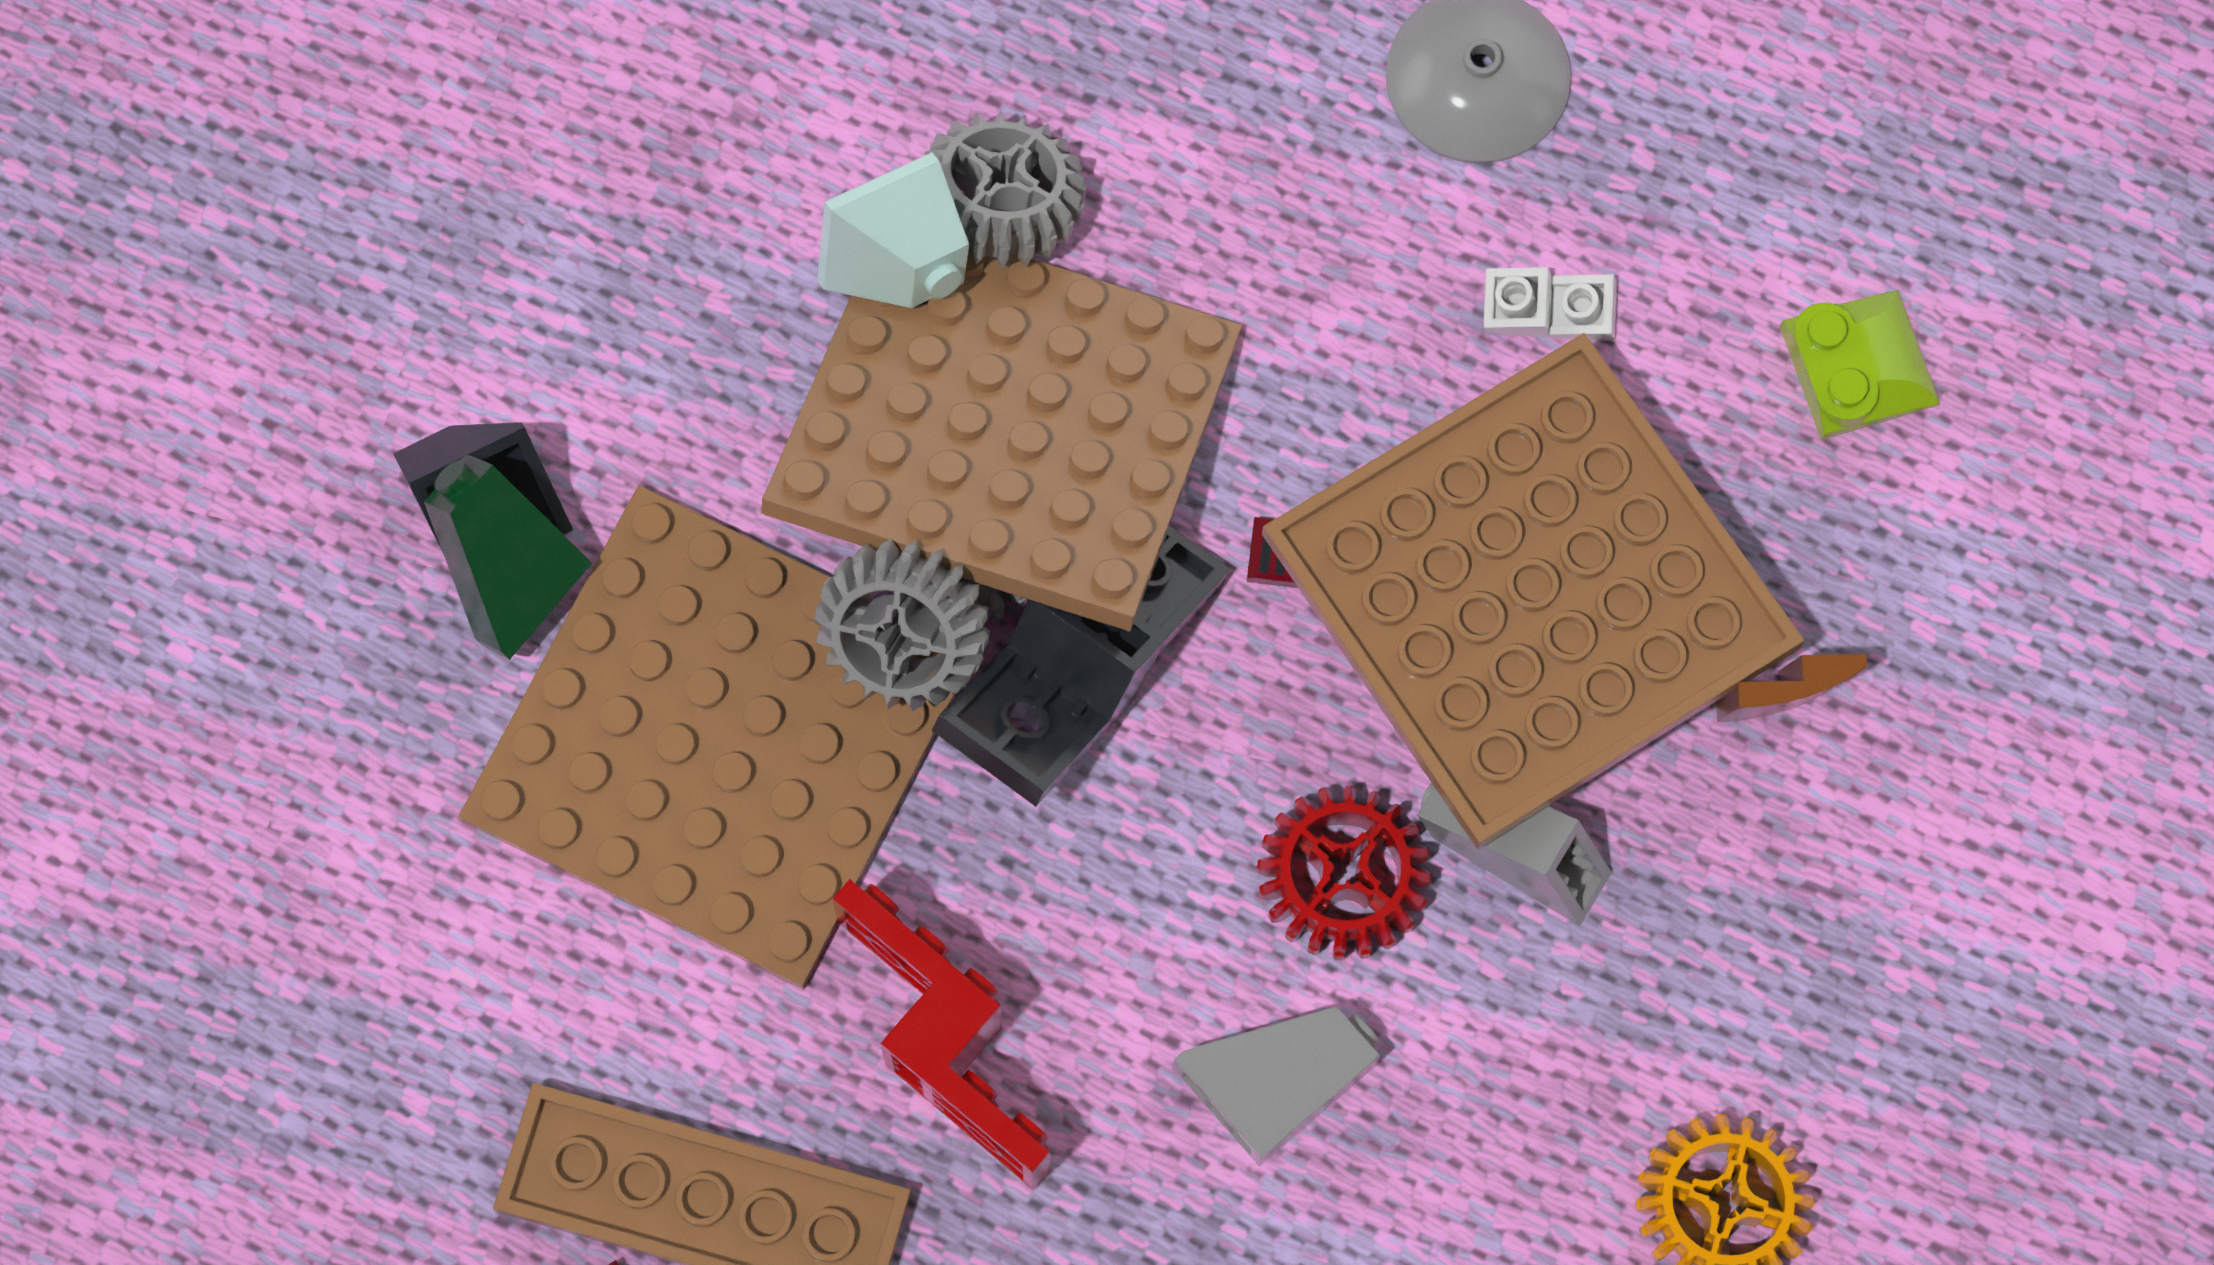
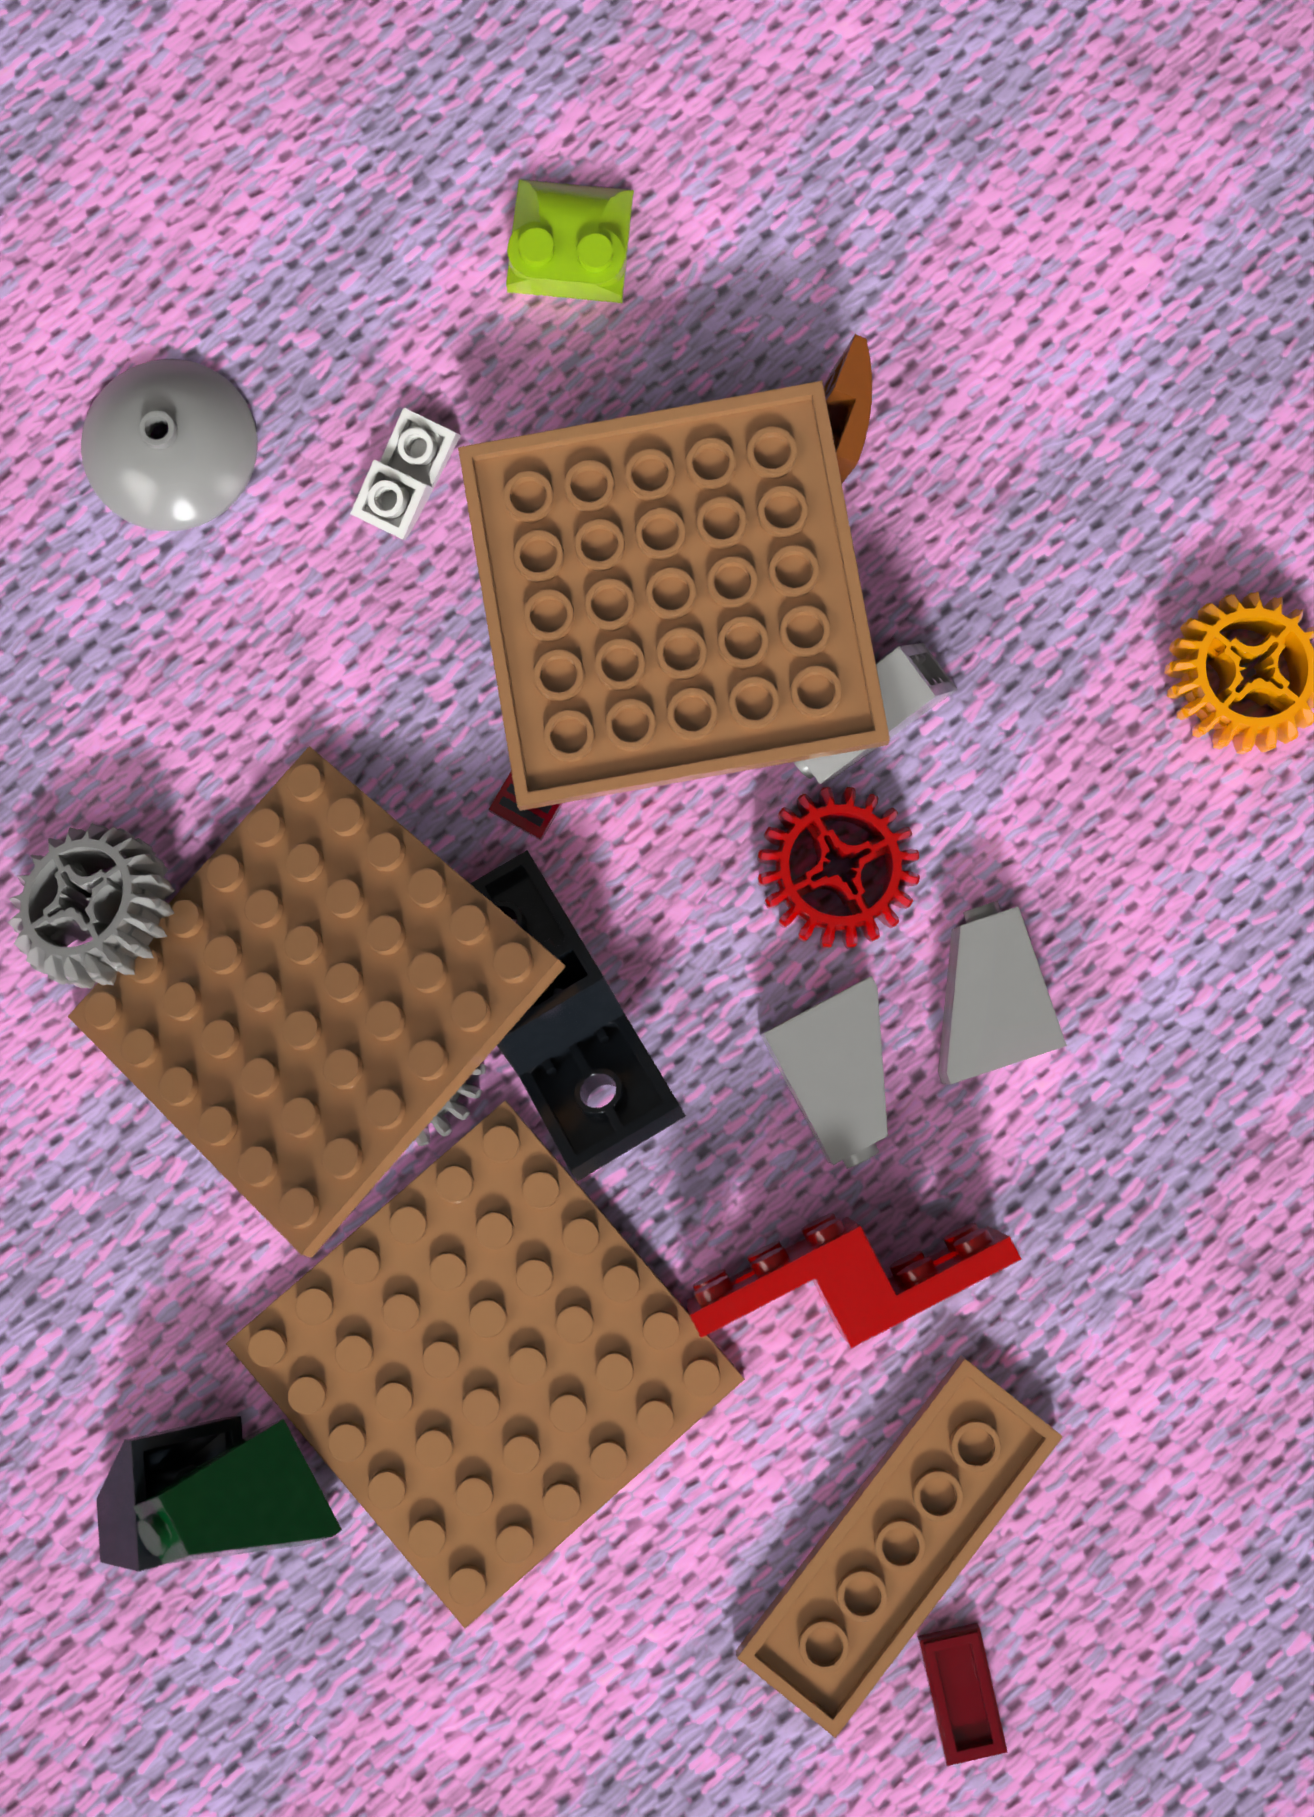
camera: 70 degrees left, 10 degrees up
(878, 641) = (469, 1168): light grey gear -> none
(894, 238) = (97, 1025): light aqua slope -> none
(1142, 949) = (836, 1071): none -> light grey slope

